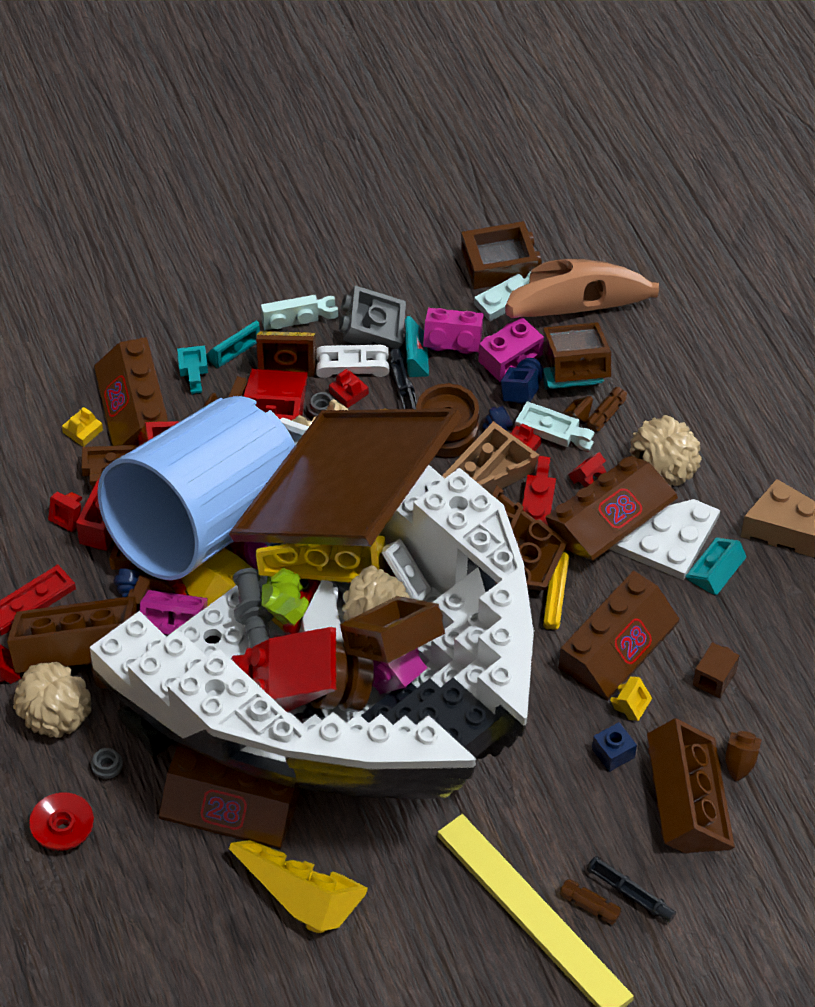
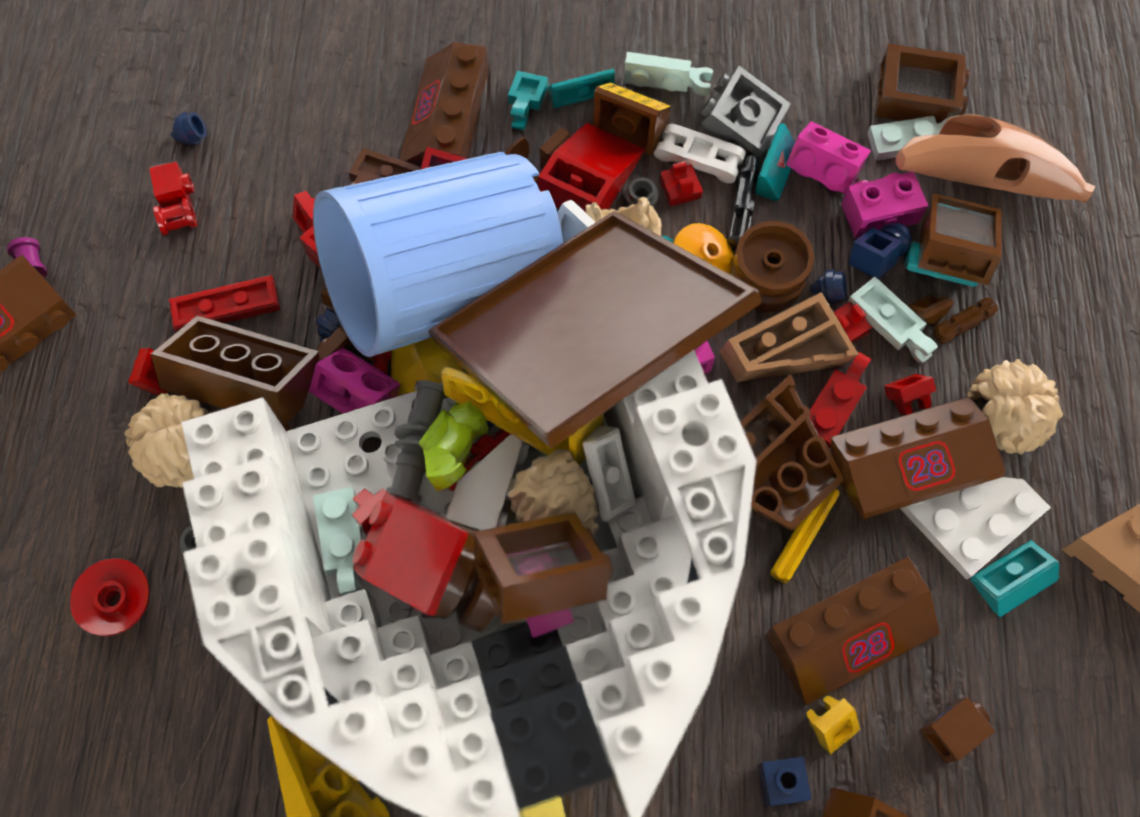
camera: 25 degrees right, 15 degrees up
(82, 427) = (379, 124): yellow tile -> none

